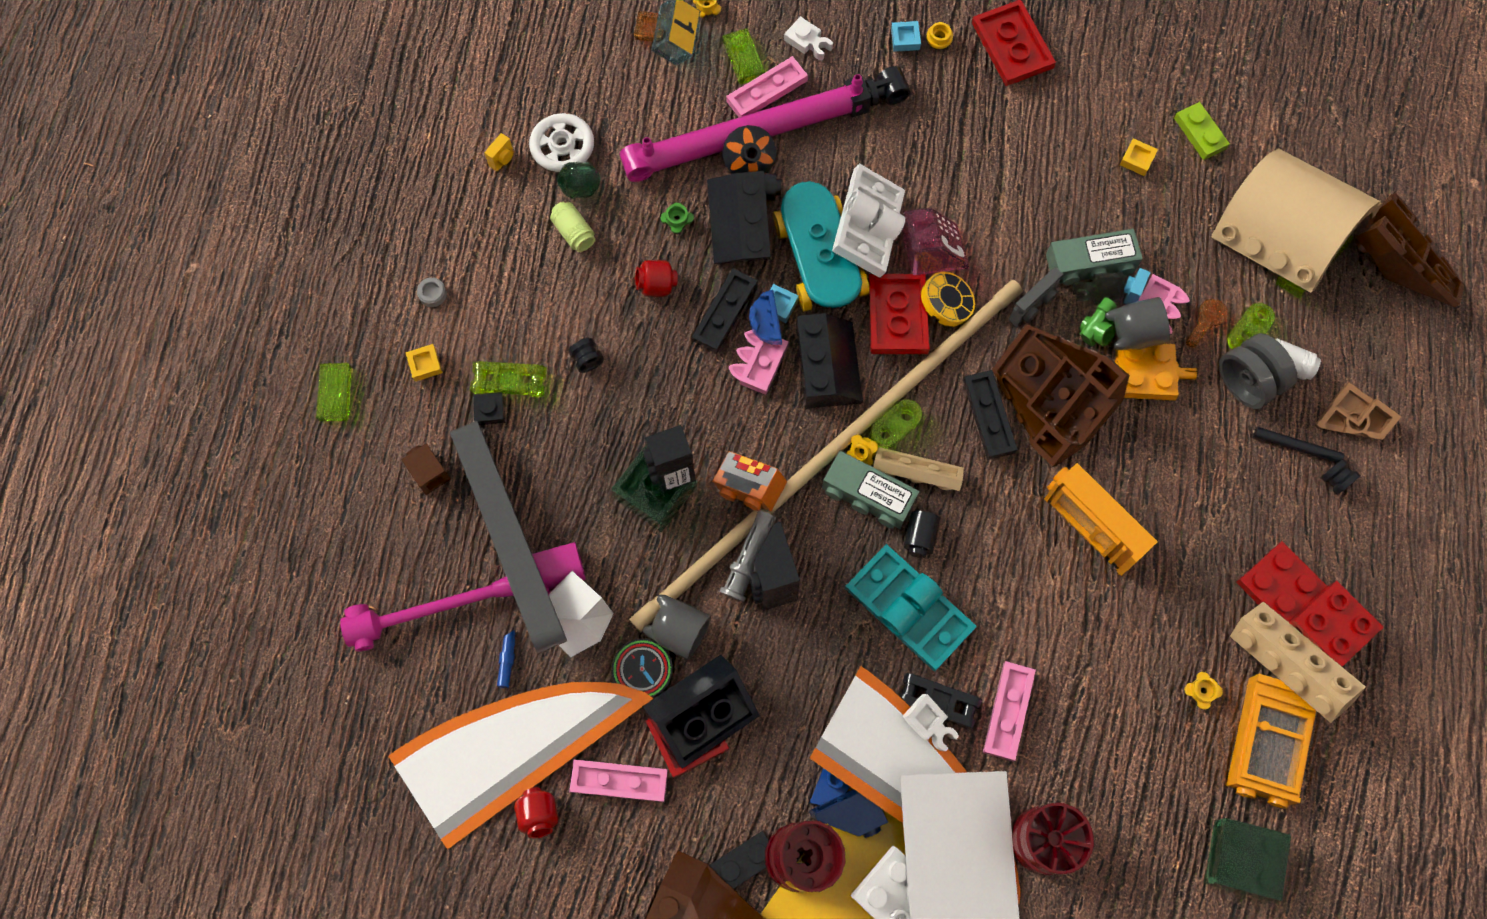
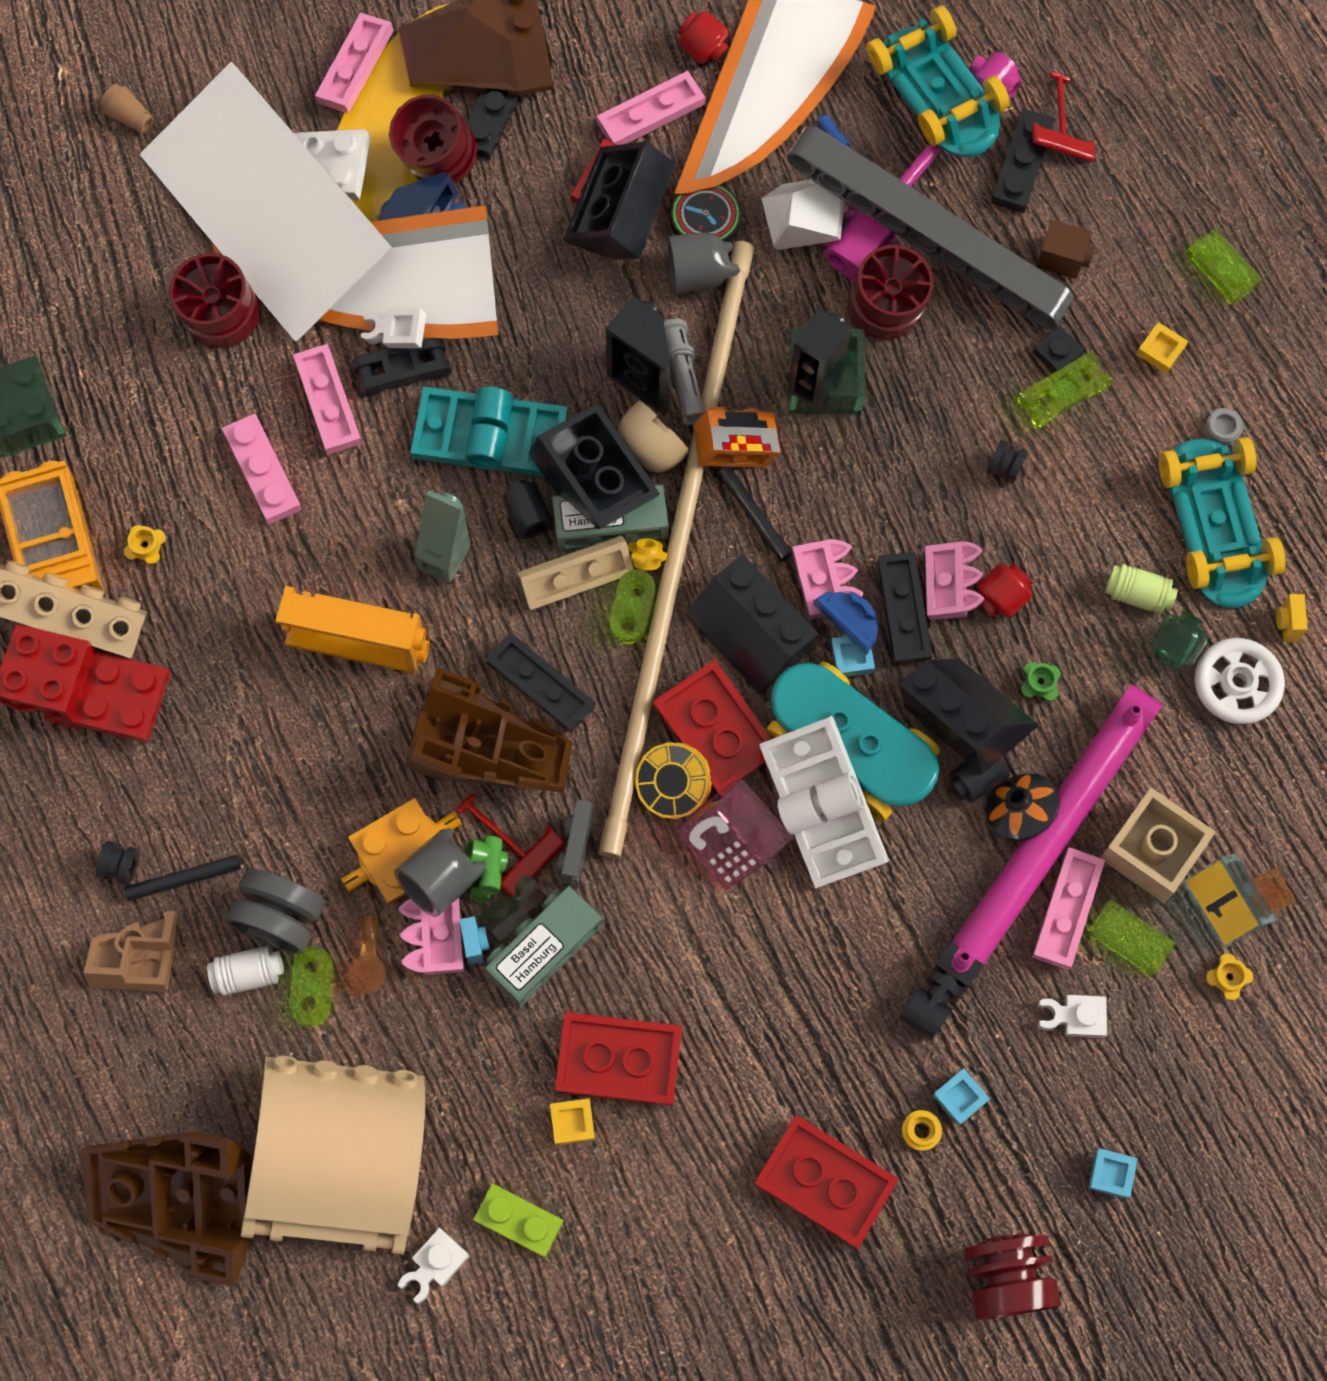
camera: 140 degrees right, 0 degrees up
(358, 545) = (1060, 141): none -> red piece
(393, 557) = (1021, 163): none -> black plate
(405, 645) = (940, 87): none -> teal piece
(487, 239) = (1218, 520): none -> teal piece
(568, 509) = (890, 292): none -> dark red wheel
(684, 305) = (948, 578): none -> bright pink plate
(691, 81) = (1158, 845): none -> tan brick
(770, 428) = (755, 514): none -> black bar
(809, 518) = (650, 440): none -> tan cylinder
(865, 515) = (592, 467): none -> black slope
(997, 540) = (442, 536): none -> sand green slope
(1066, 315) = (530, 862): none -> red piece
(1086, 693) = (261, 469): none -> bright pink plate
(1089, 172) = (618, 1059): none -> red plate
(1264, 139) = (437, 1261): none -> white plate

